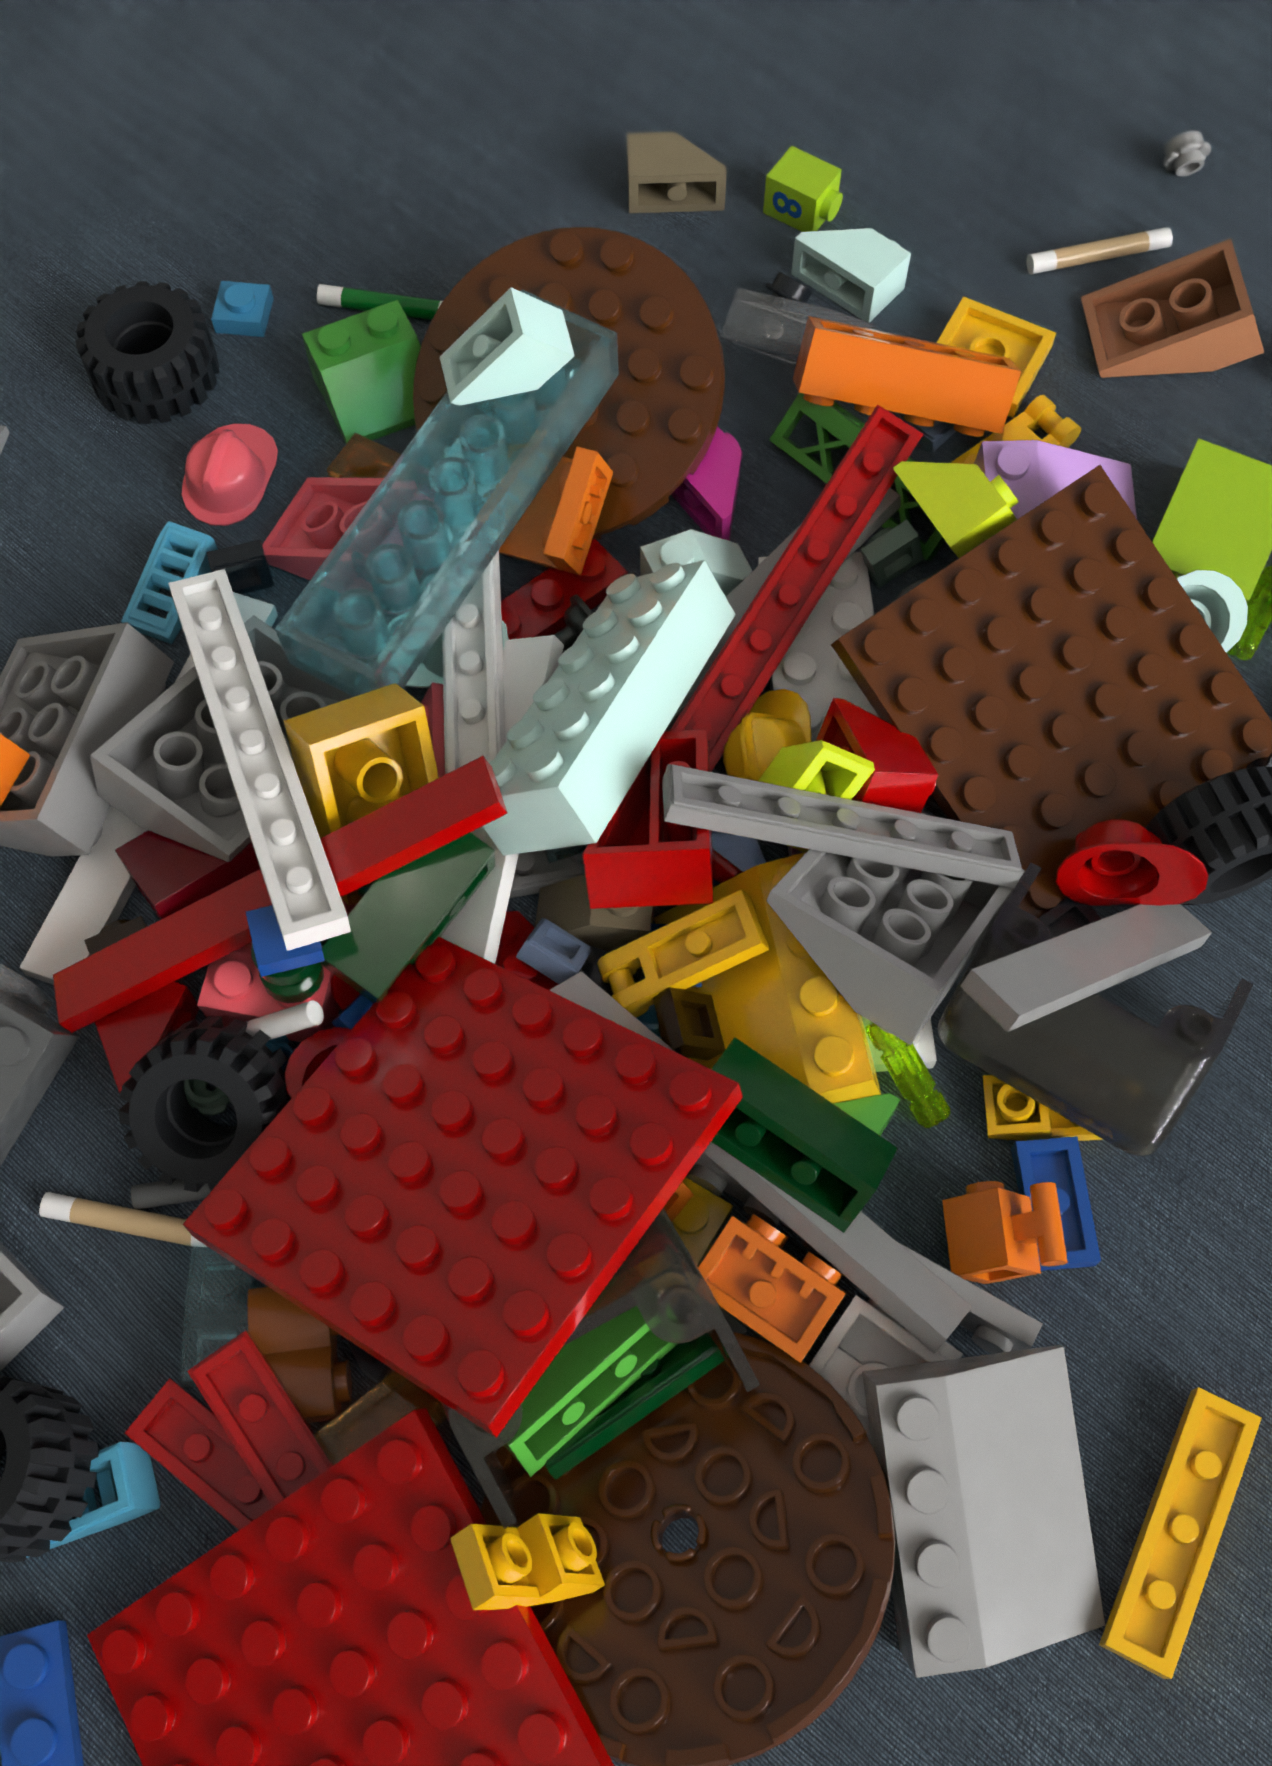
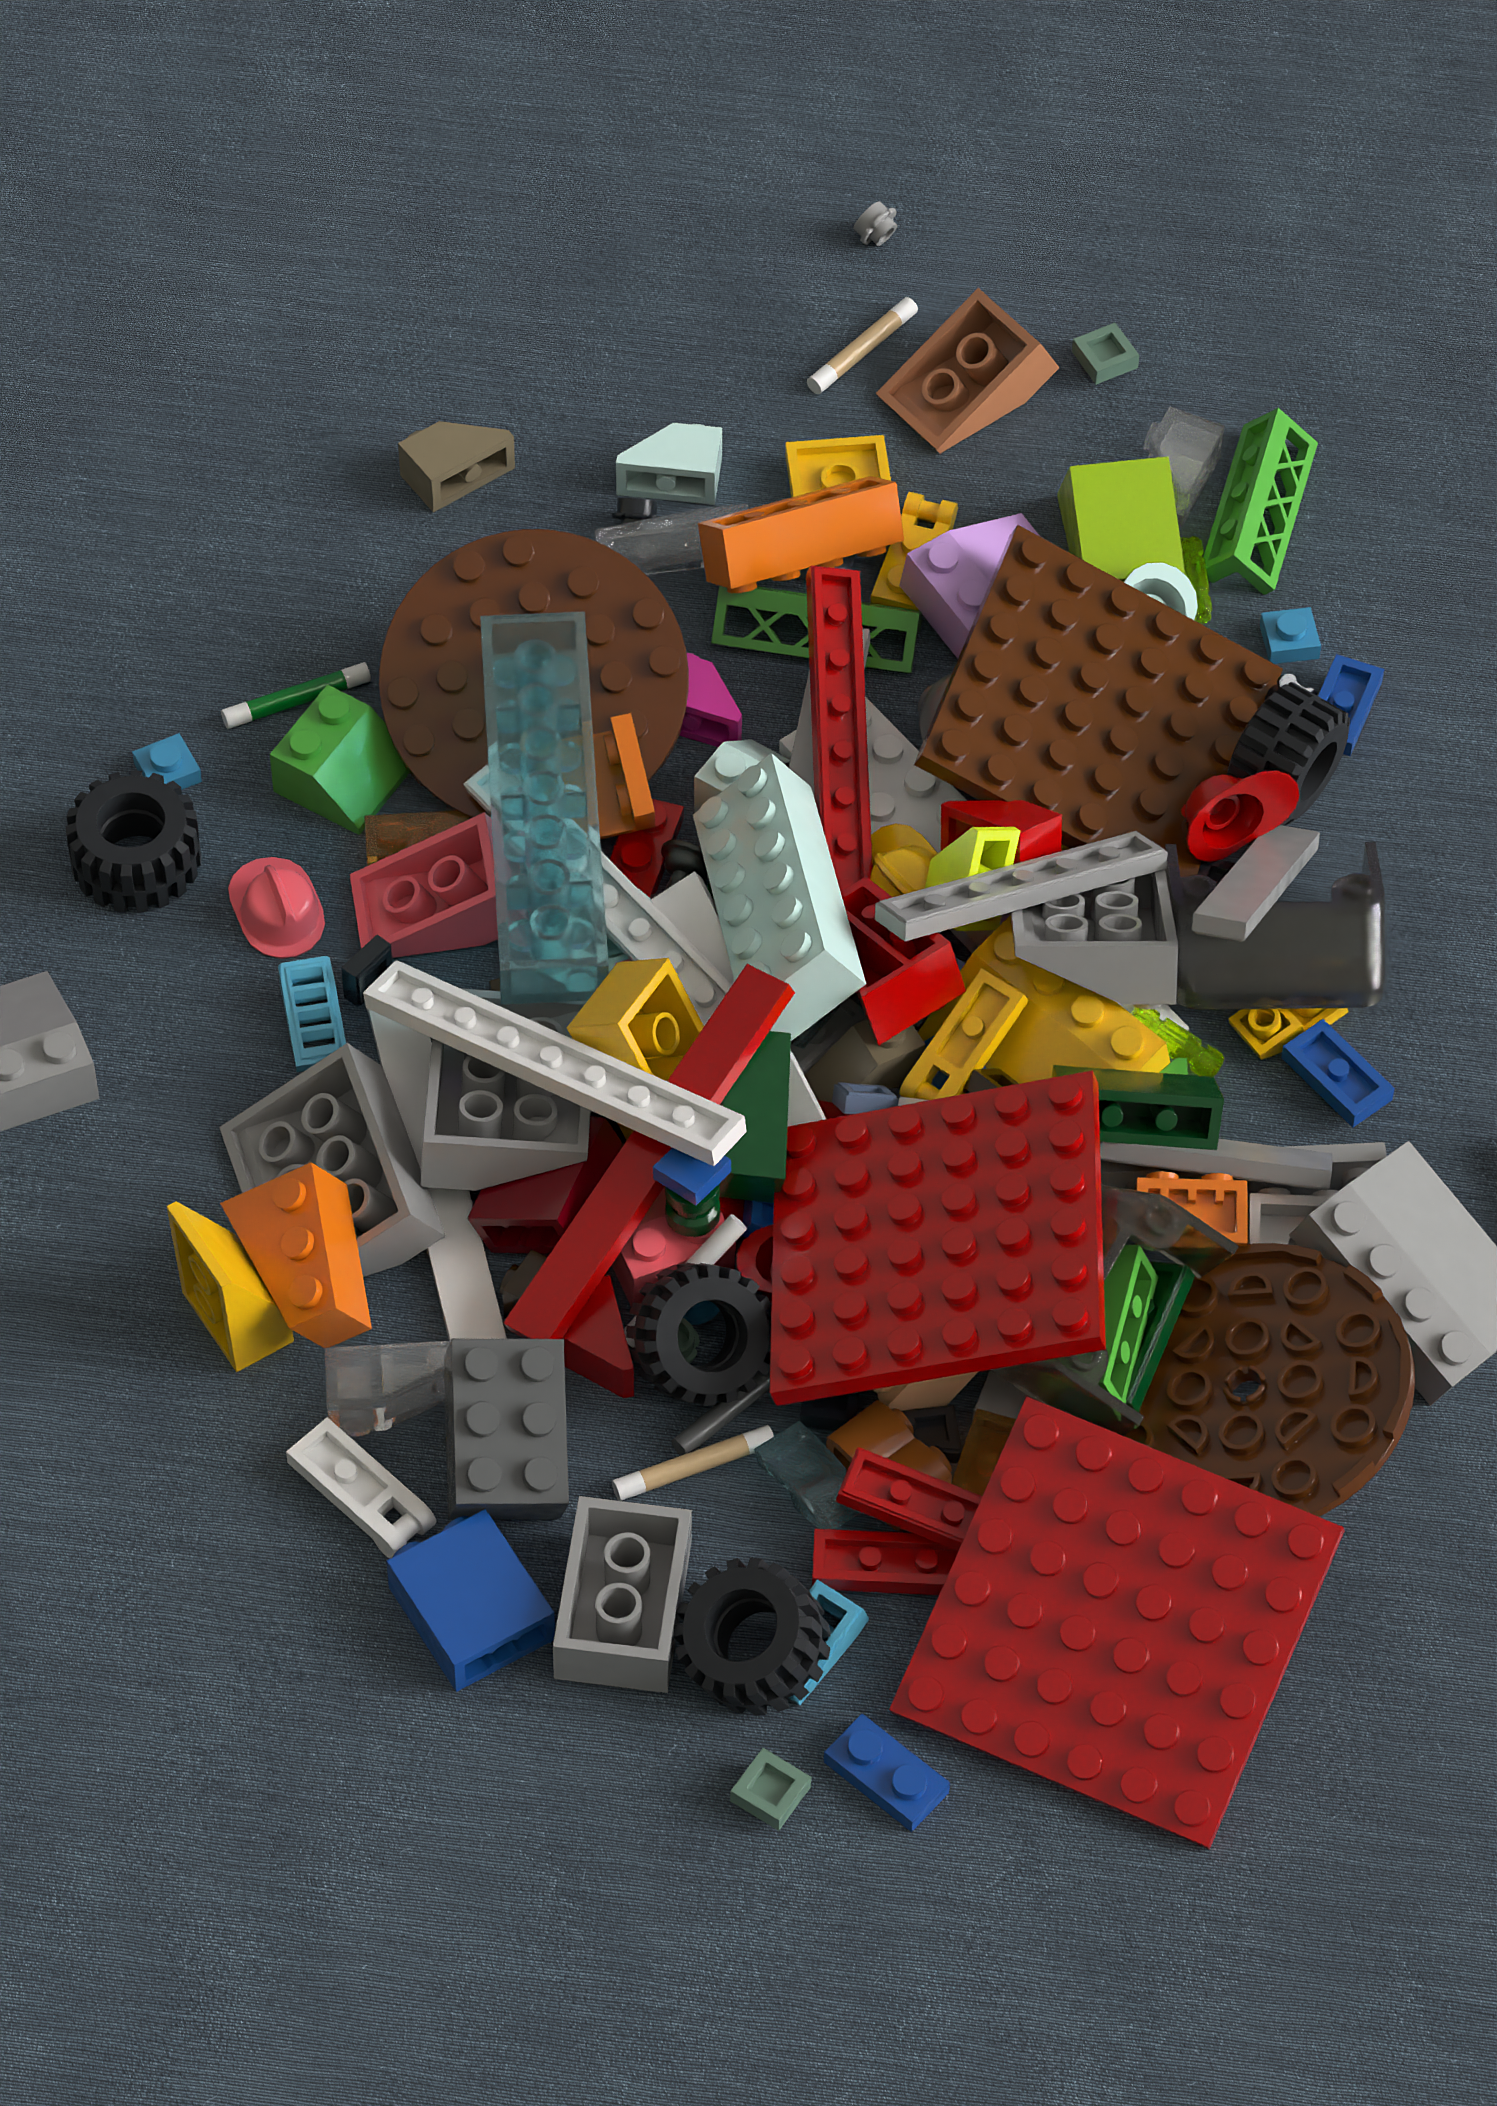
camera: 35 degrees left, 10 degrees down
(507, 350) = (522, 669): light aqua slope -> none
(529, 1564) = (1169, 1437): yellow slope -> none
(802, 191) = (581, 418): lime brick -> none
(892, 553) = (885, 679): sand green plate -> none
(959, 501) = (927, 610): neon yellow slope -> none
(997, 1233) = (1312, 1106): orange brick -> none

